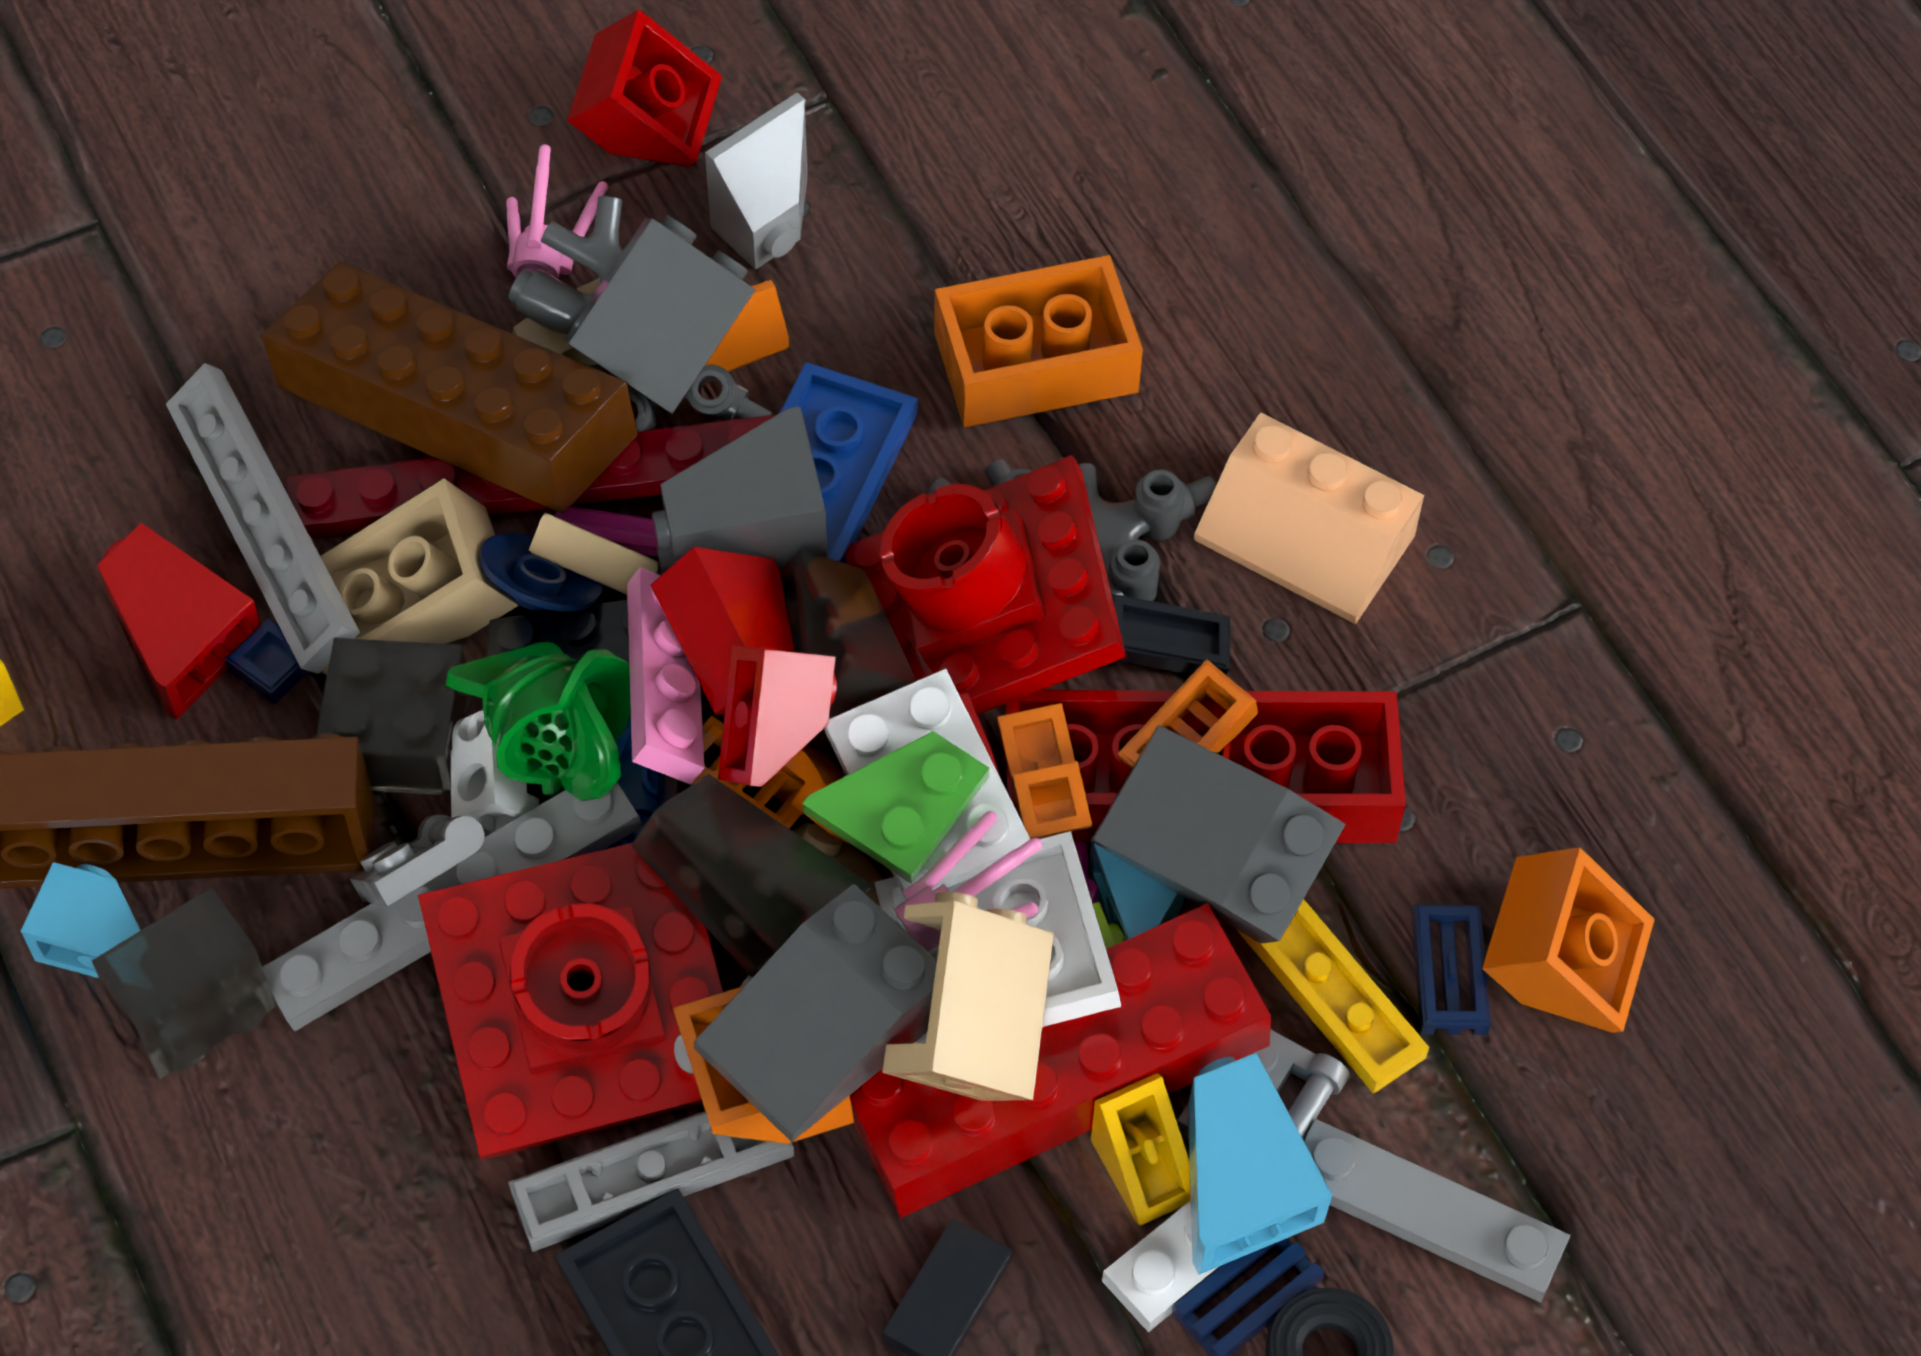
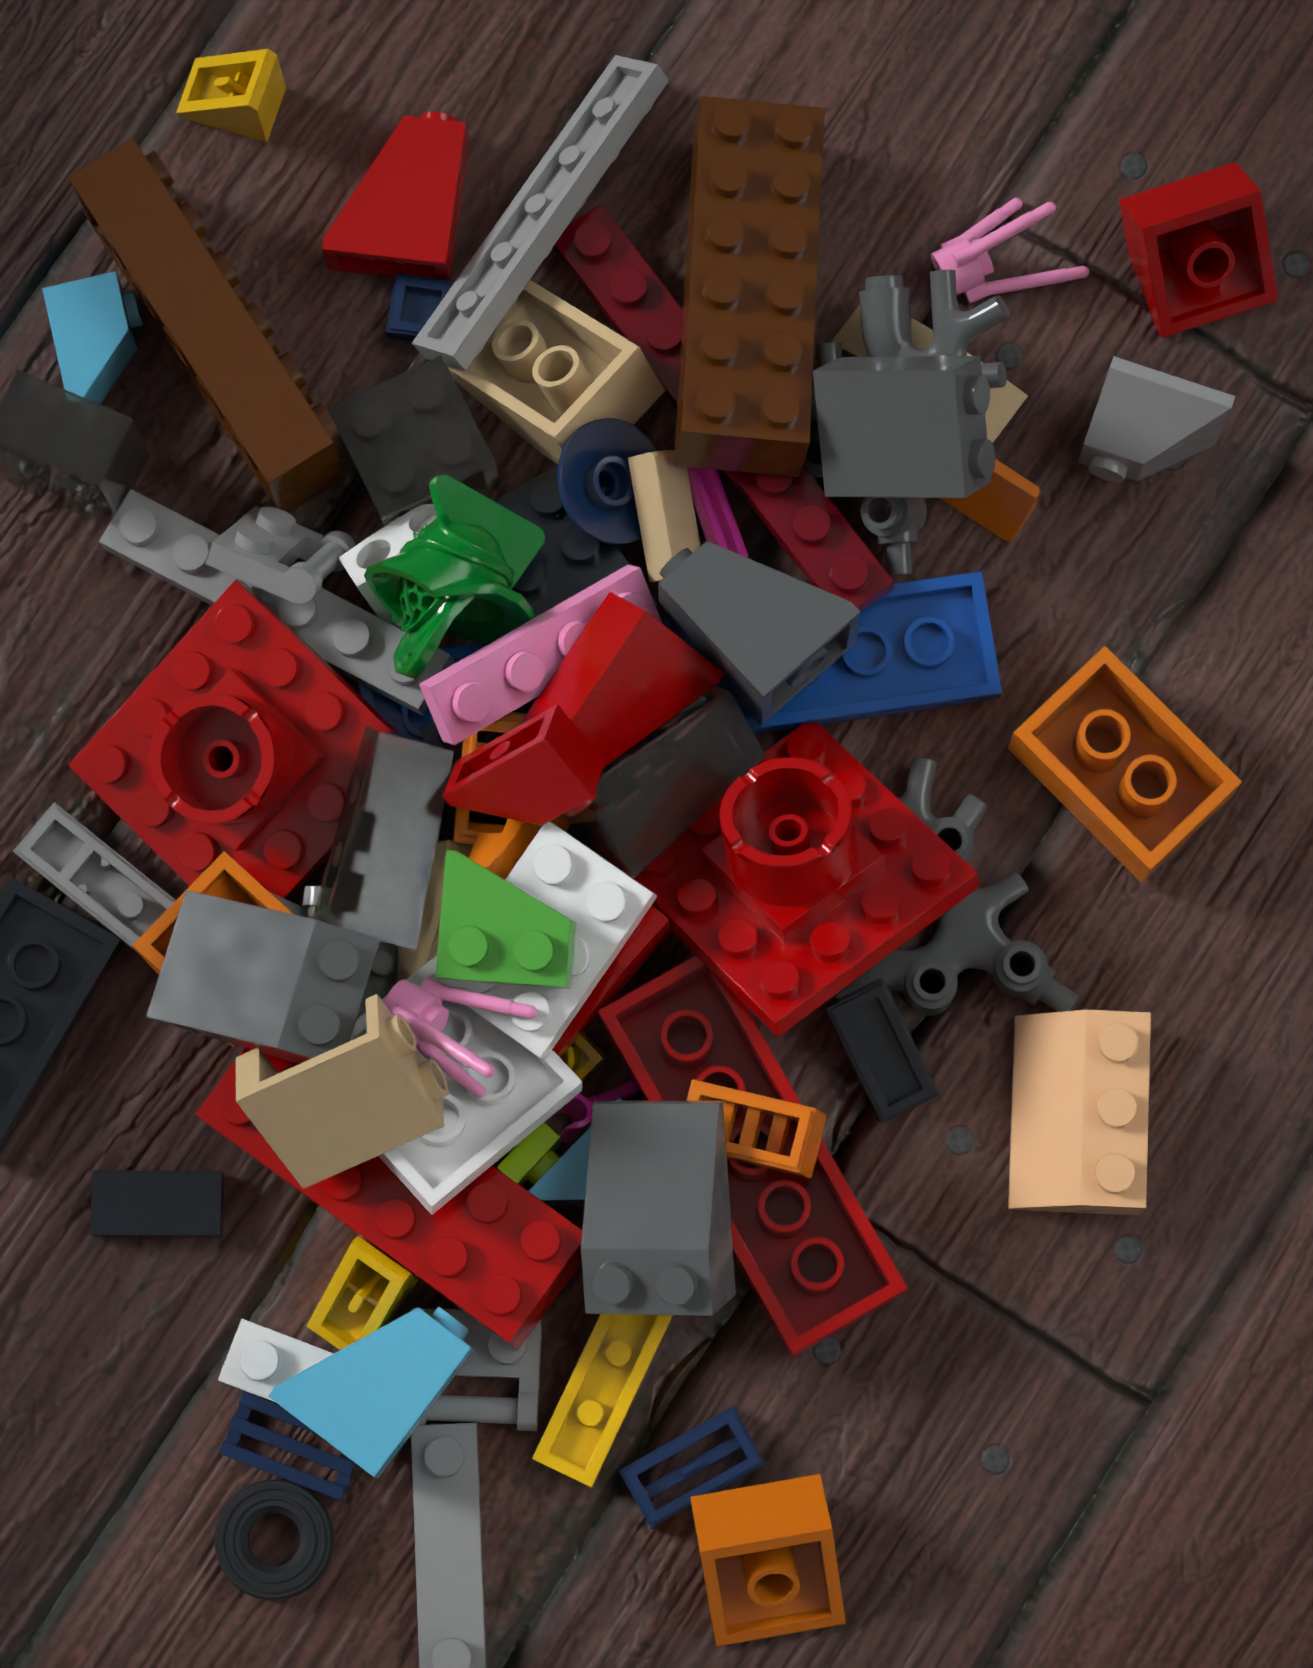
camera: 65 degrees right, 20 degrees up
(1044, 771) = (639, 1026): orange slope -> none

